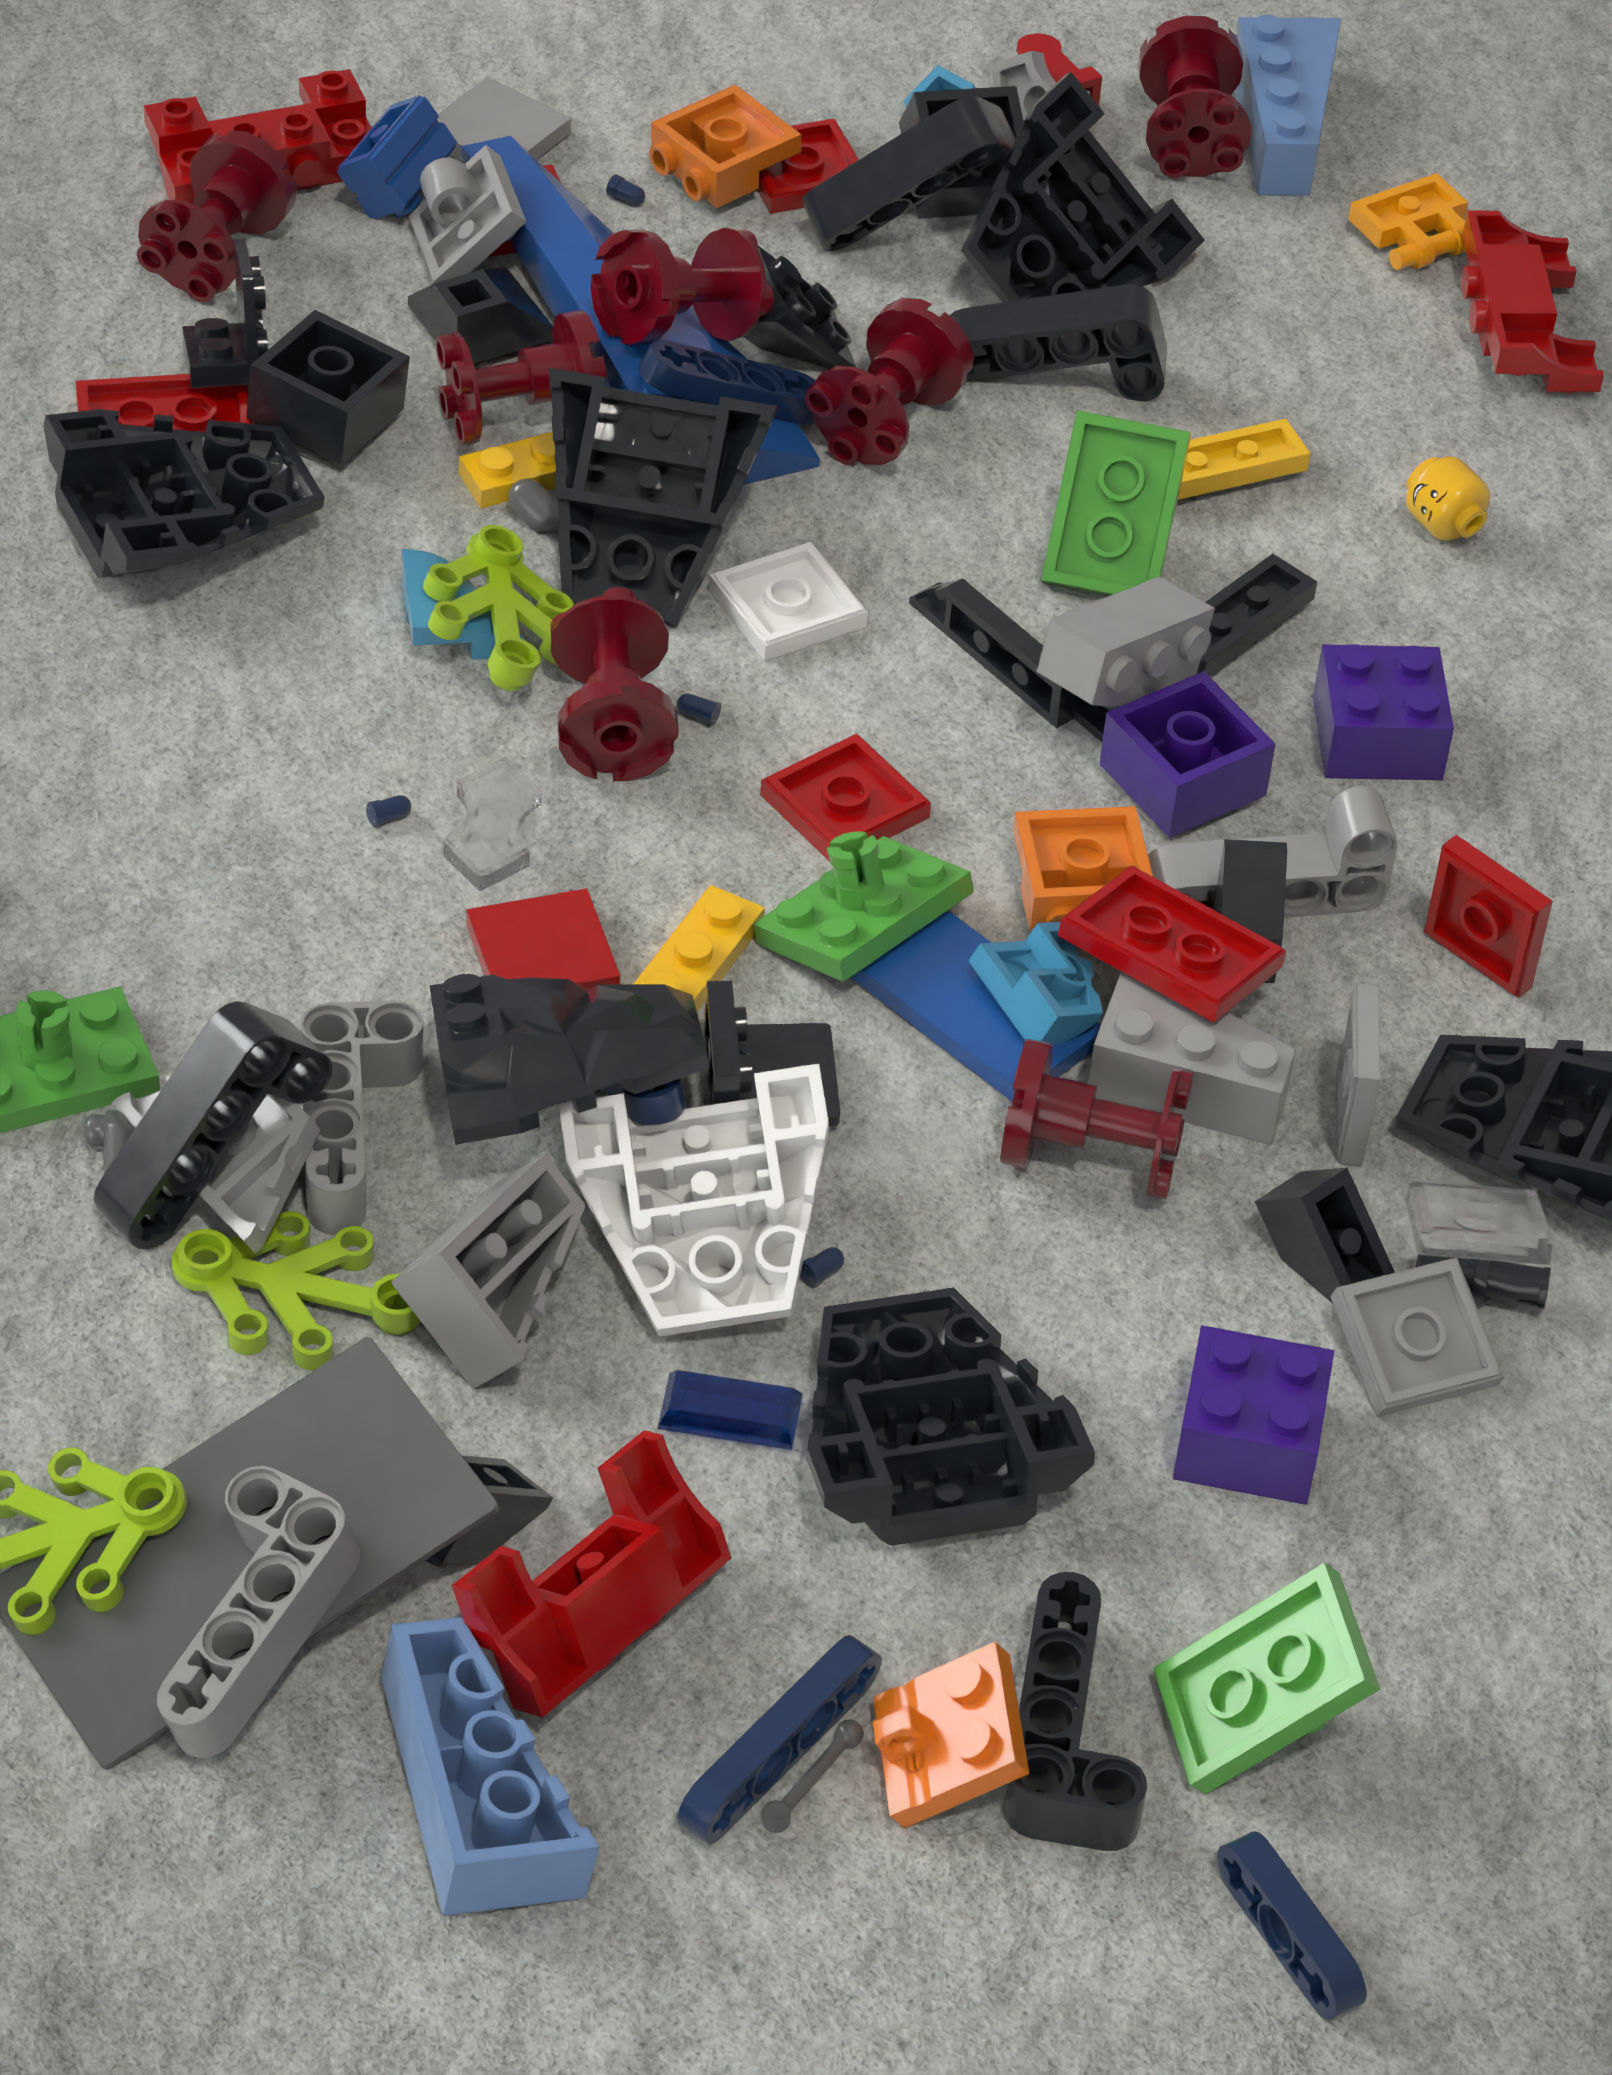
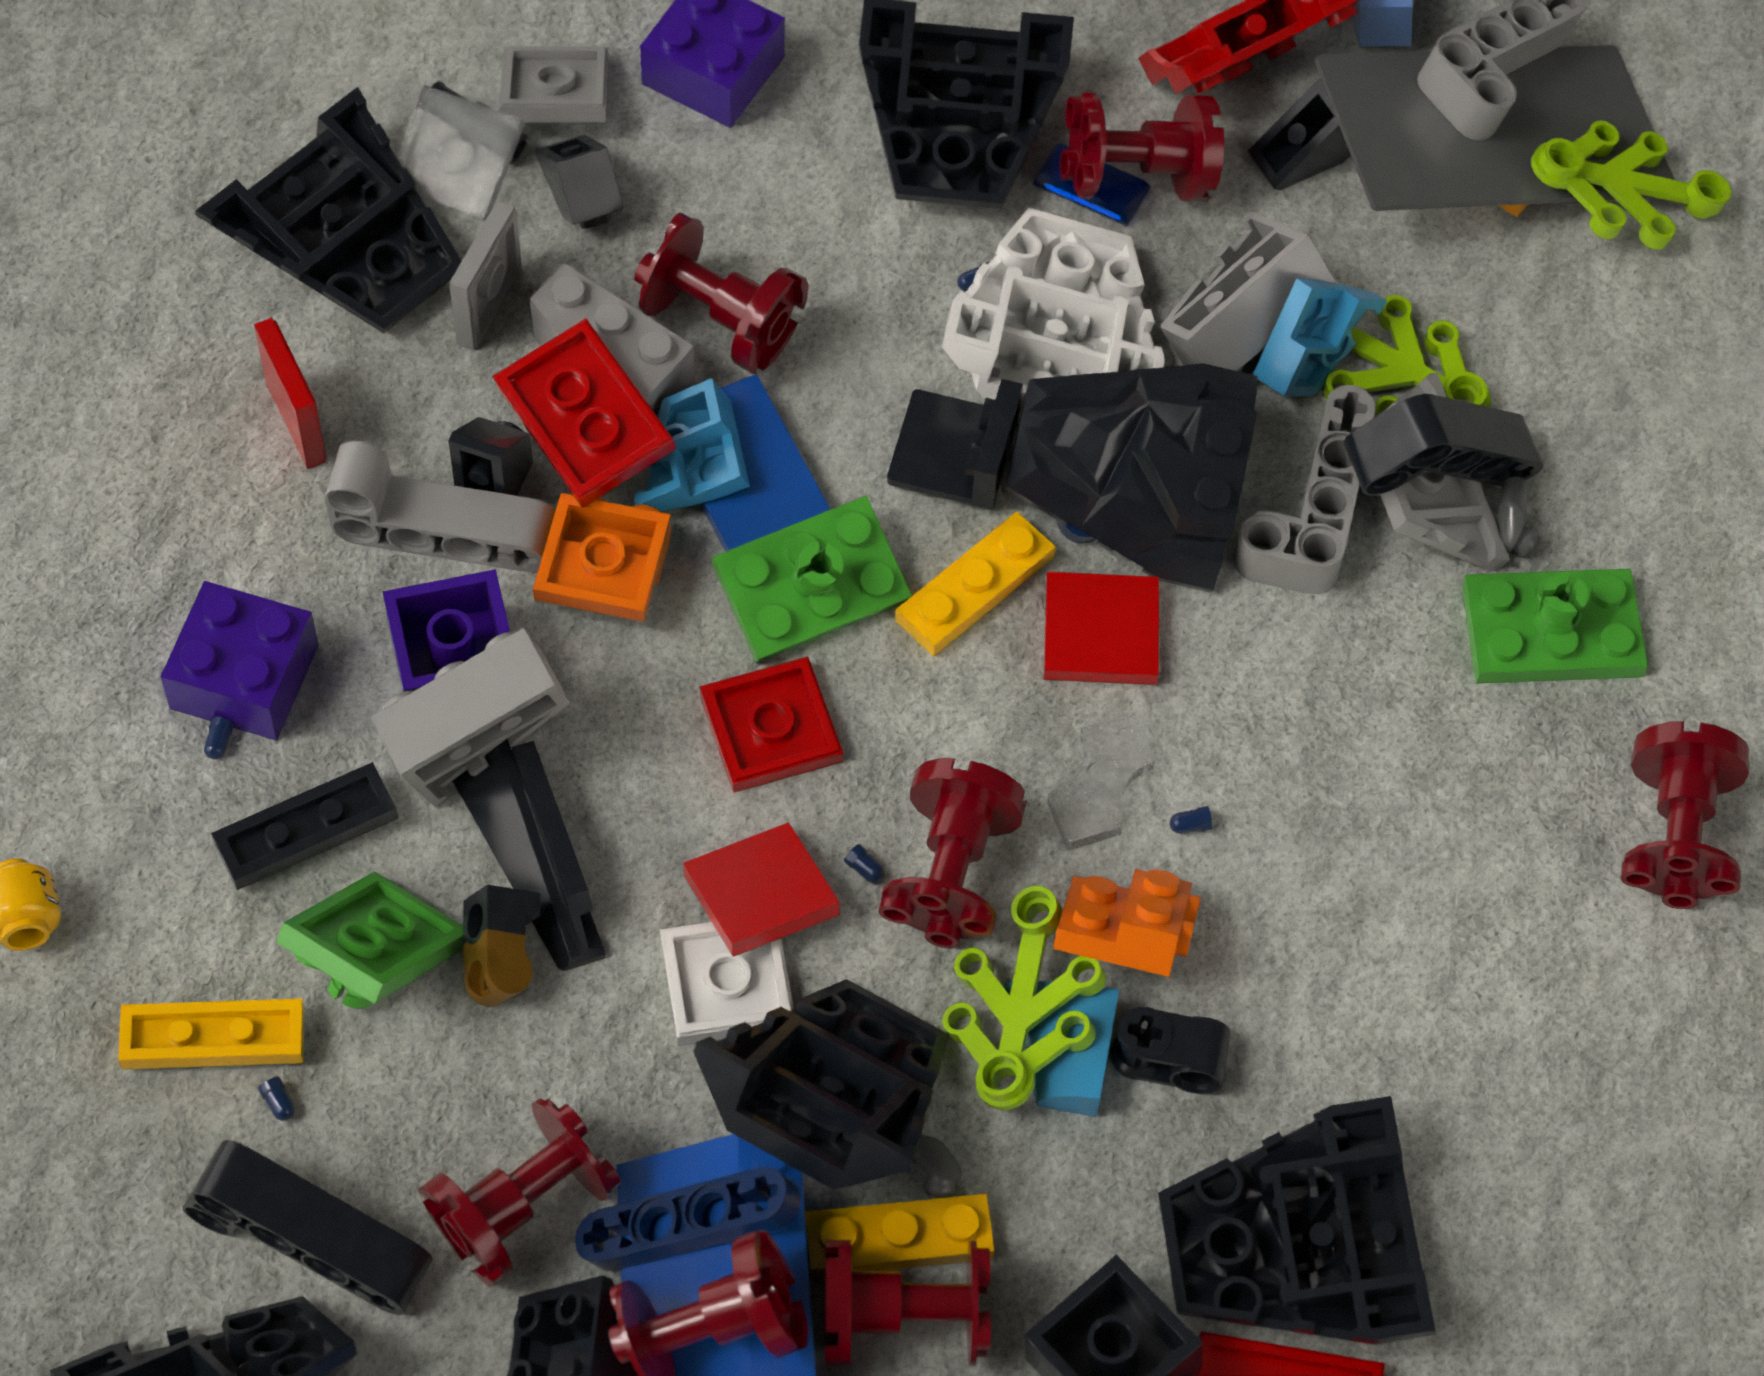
camera: 160 degrees left, 15 degrees up
(341, 615) = (1177, 1050): none -> black piece
(408, 1230) = (1313, 335): none -> dark azure slope
(425, 676) = (1132, 925): none -> orange plate
(659, 1393) = (1182, 147): none -> dark red piece
(787, 649) = (761, 889): none -> red tile
(1012, 565) = (495, 943): none -> leg

